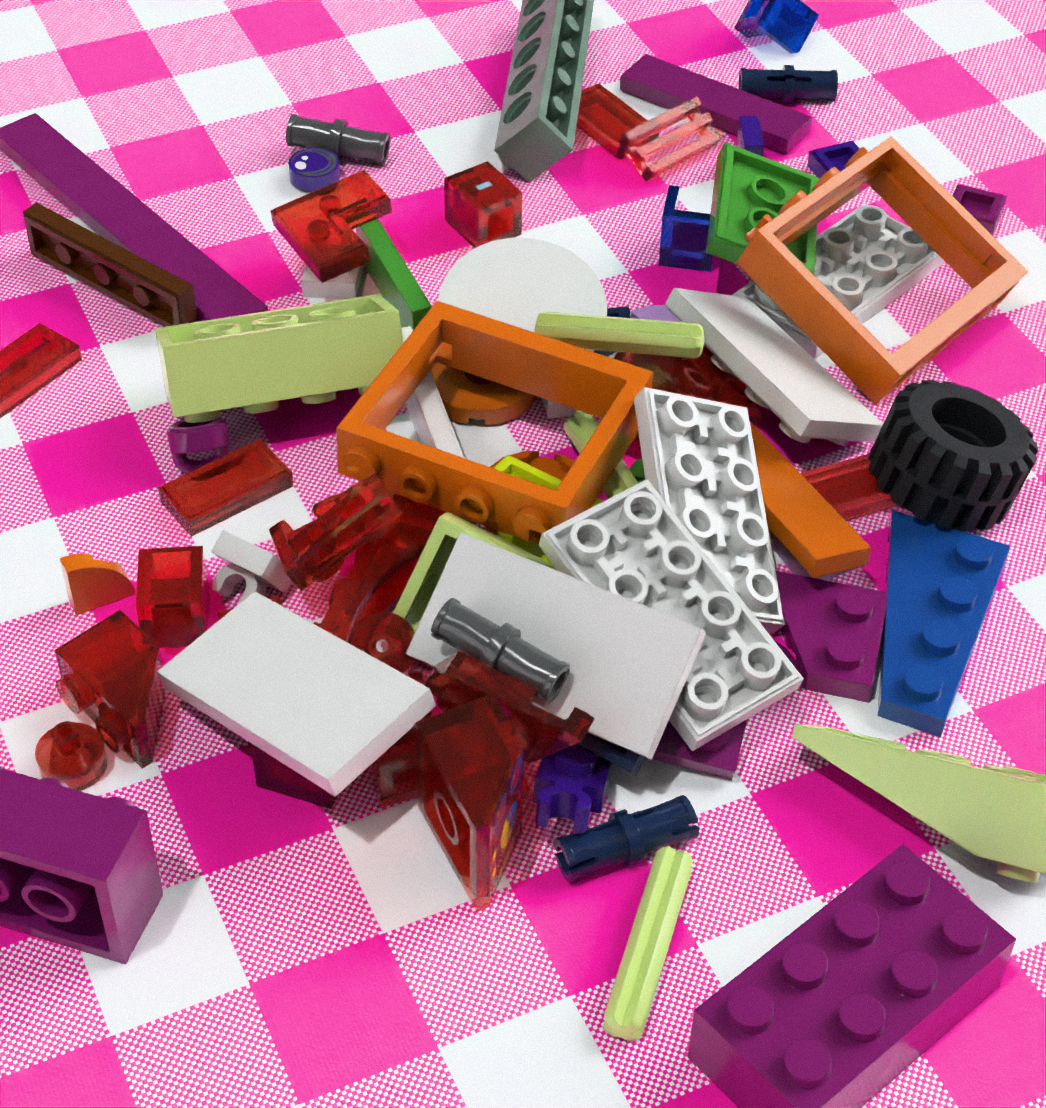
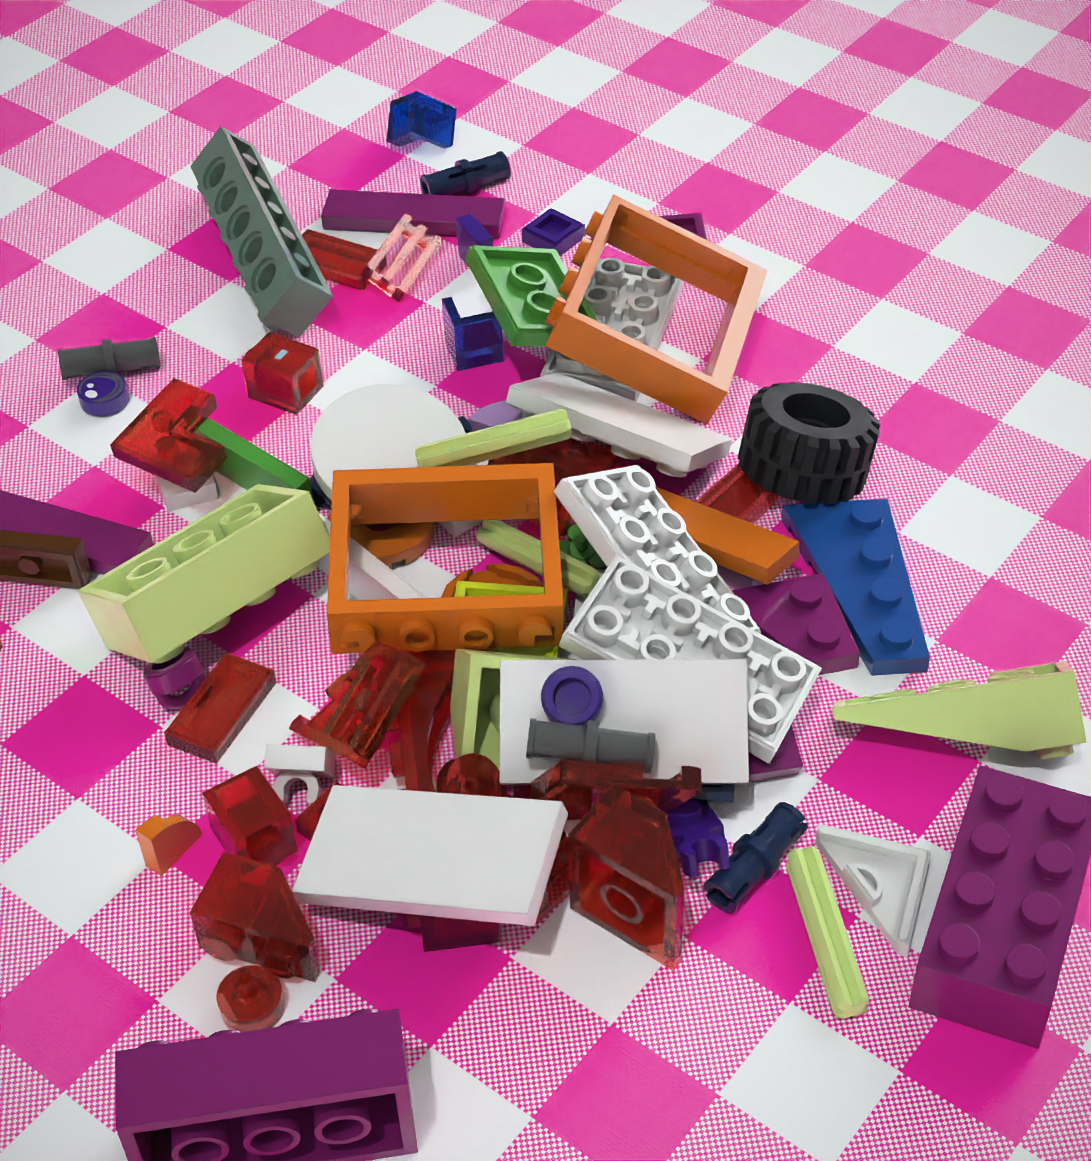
camera: 25 degrees left, 0 degrees up
(508, 594) = (572, 696): none -> dark purple tile
(743, 912) = (881, 876): none -> white tile

